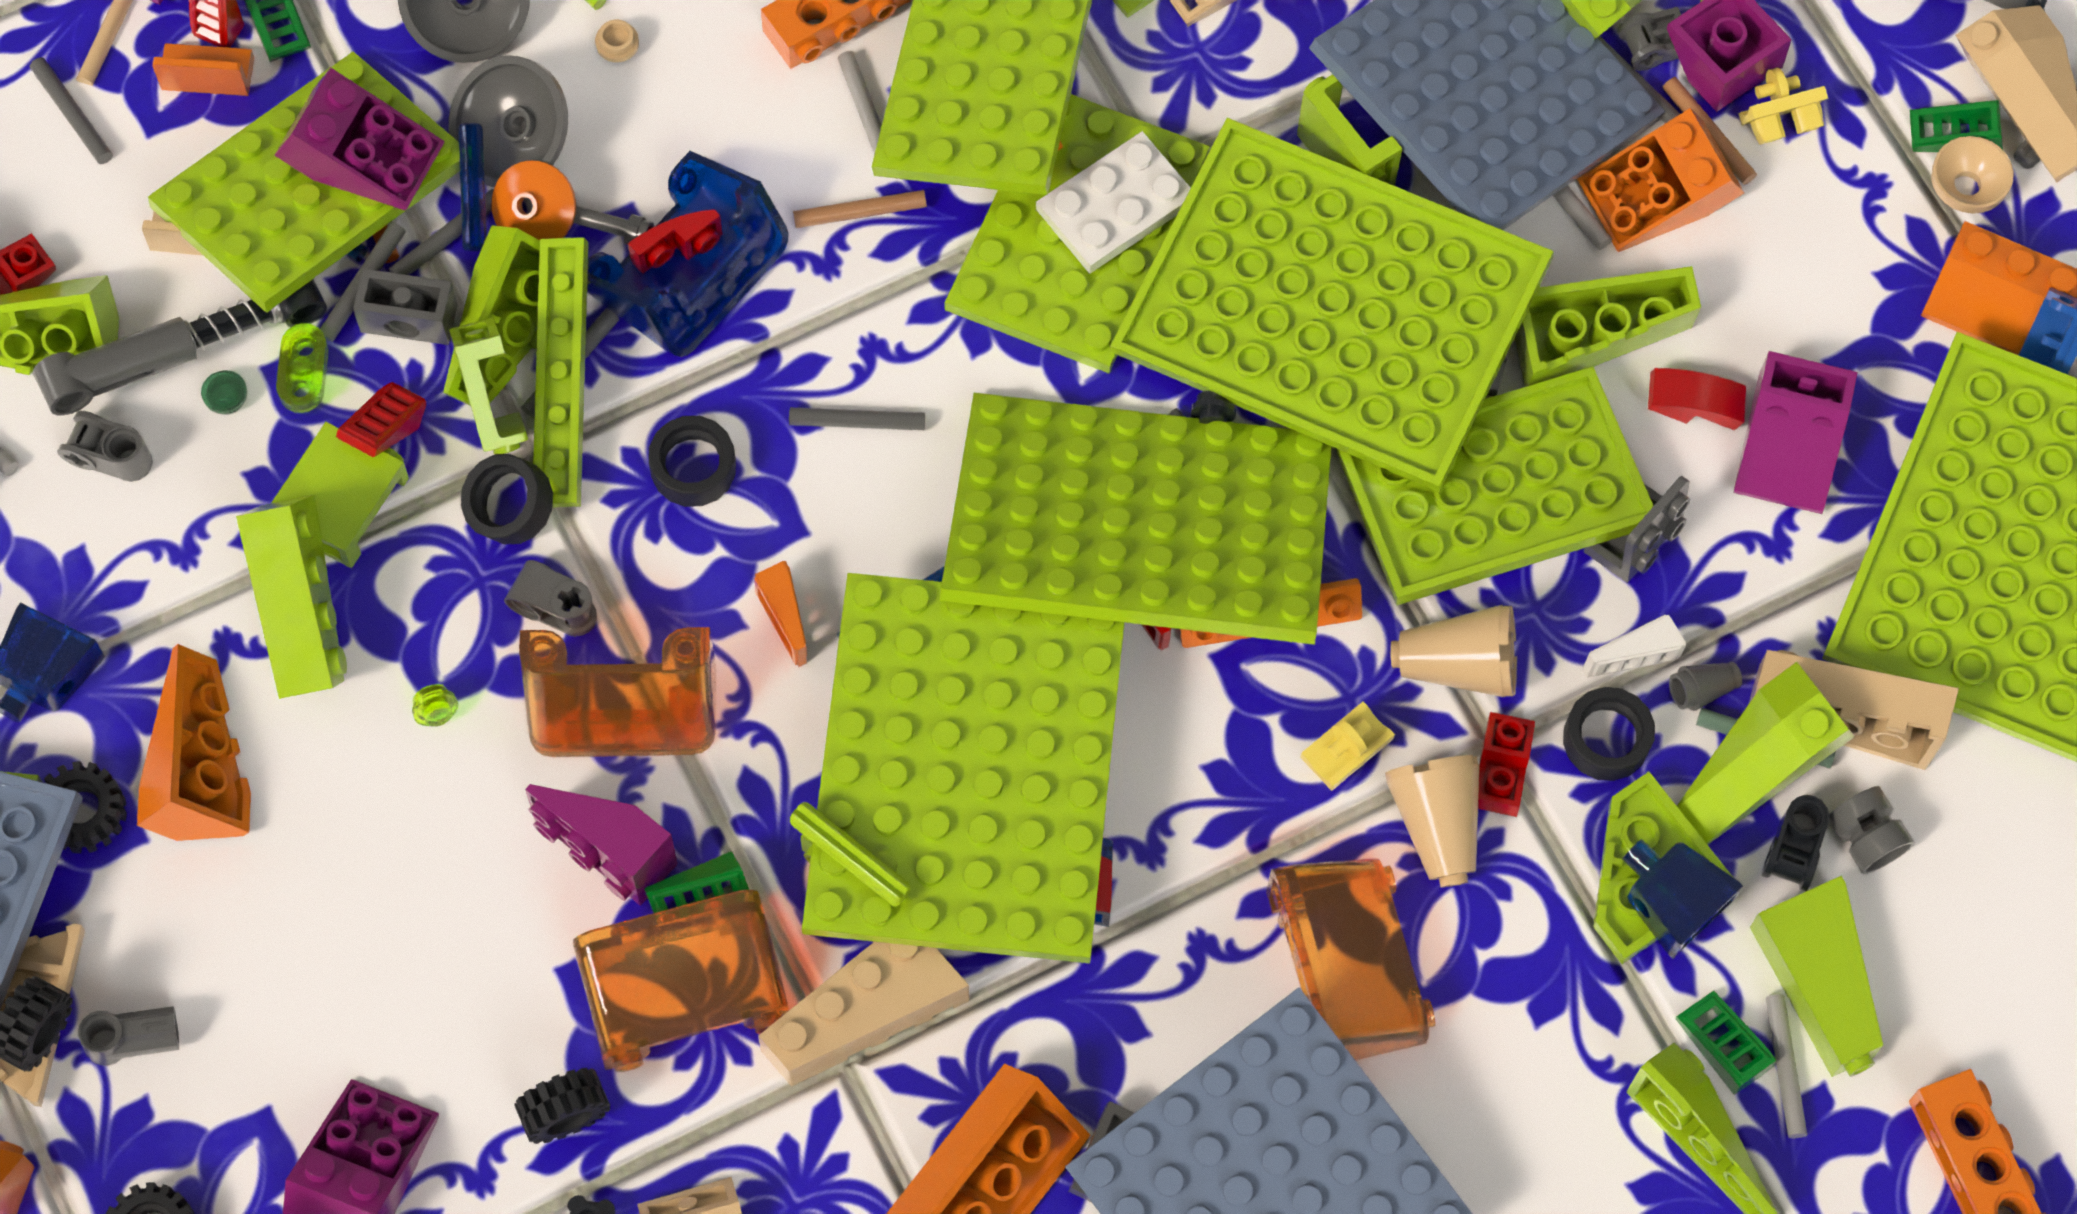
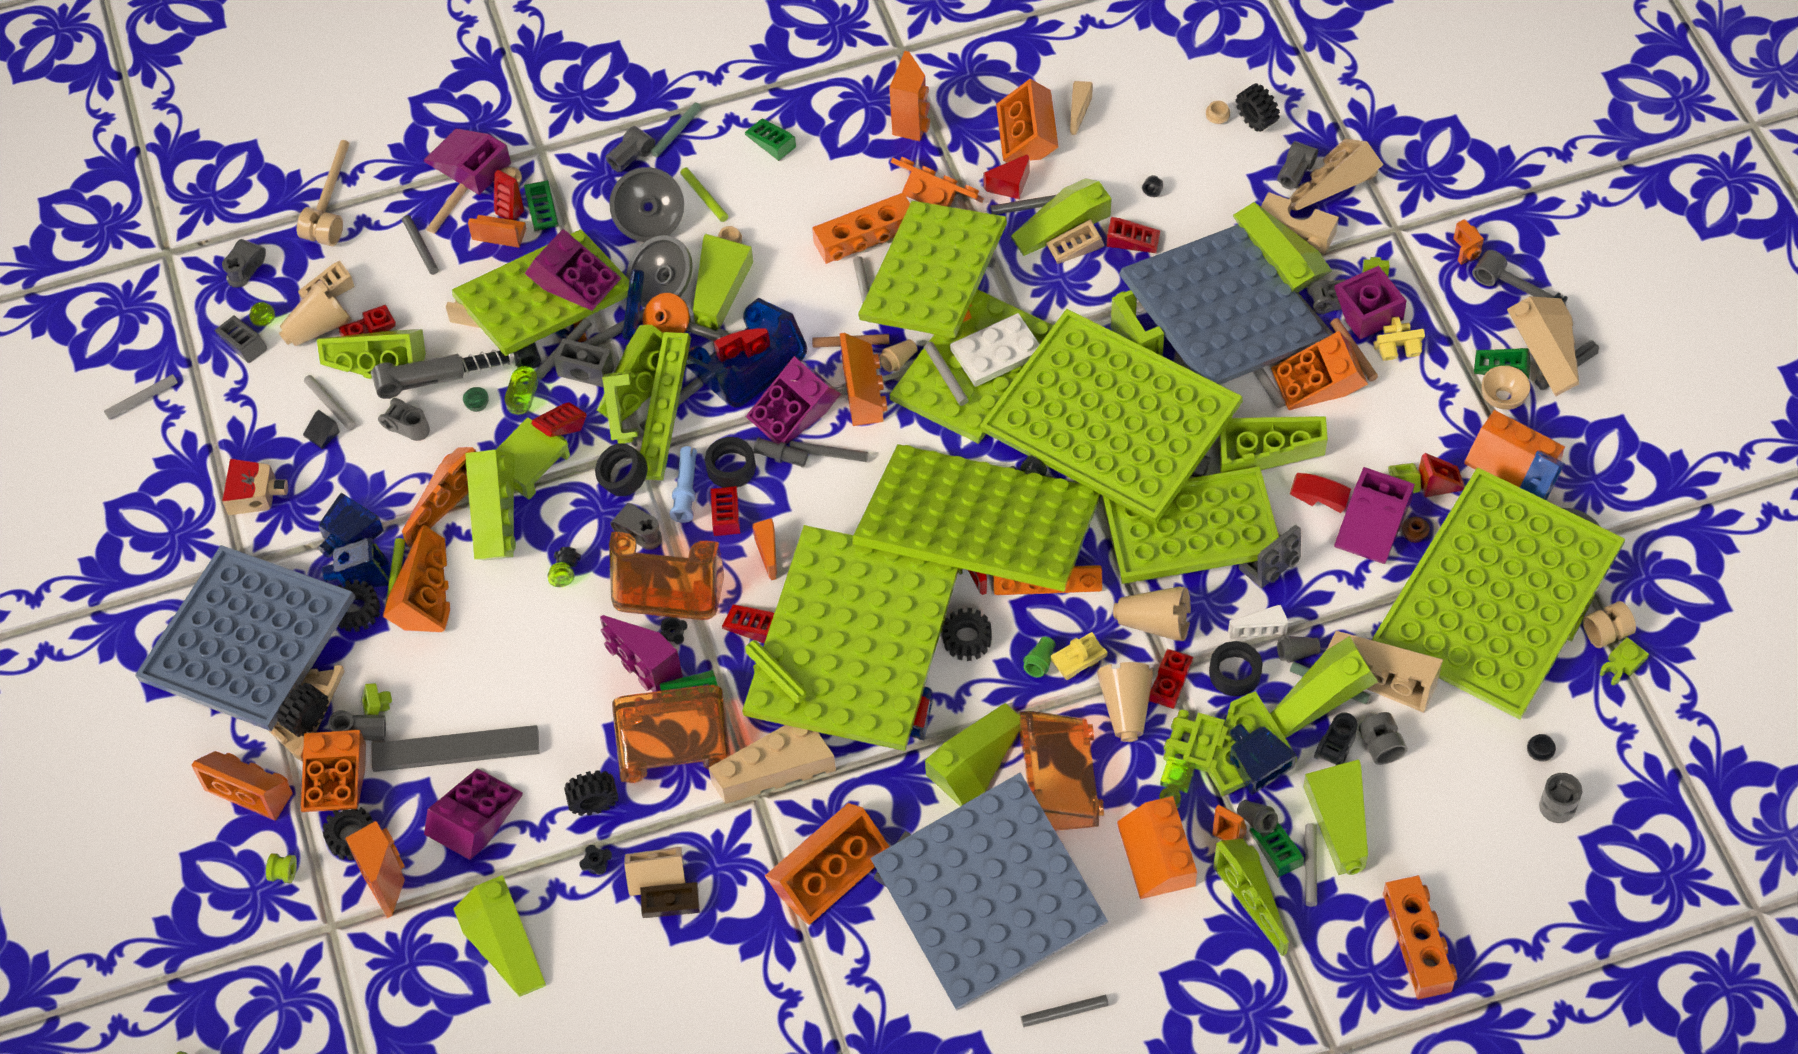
camera: 15 degrees right, 10 degrees down
(76, 730) = (359, 562): none -> clear blue torso
(101, 1126) = (332, 770): none -> orange slope
(140, 723) = (396, 565): none -> lime bar
(150, 984) = (374, 701): none -> lime tile
(202, 571) = (442, 493): none -> orange wedge
(306, 1048) = (455, 748): none -> dark grey tile
(440, 670) = (567, 555): none -> black plate
(614, 119) = (719, 279): none -> lime slope
(621, 529) = (684, 494): none -> light blue pin
(640, 771) = (676, 624): none -> black plate
(705, 580) = (730, 526): none -> red slope
(775, 768) = (748, 631): none -> red slope
(776, 431) = (780, 452): none -> dark grey pin
(780, 338) = (792, 402): none -> magenta slope
(895, 285) = (862, 381): none -> orange slope
(944, 230) = (897, 355): none -> tan cone
(1037, 256) = (946, 373): none -> light grey bar
(1161, 703) = (967, 620): none -> black tyre
(1198, 952) = (972, 757): none -> lime wedge
(1280, 756) = (1039, 658): none -> bright green cone
(1533, 1074) = (1157, 848): none -> orange slope
(1543, 942) = (1176, 777): none -> clear neon green plate
(1575, 873) = (1202, 741): none -> lime plate
(1645, 1023) = (1228, 824): none -> orange slope
(1689, 995) = (1259, 816): none -> dark grey cone
(1830, 347) = (1408, 473): none -> lime slope
(1860, 456) = (1415, 535): none -> reddish brown plate
(1885, 348) = (1439, 476): none -> red slope

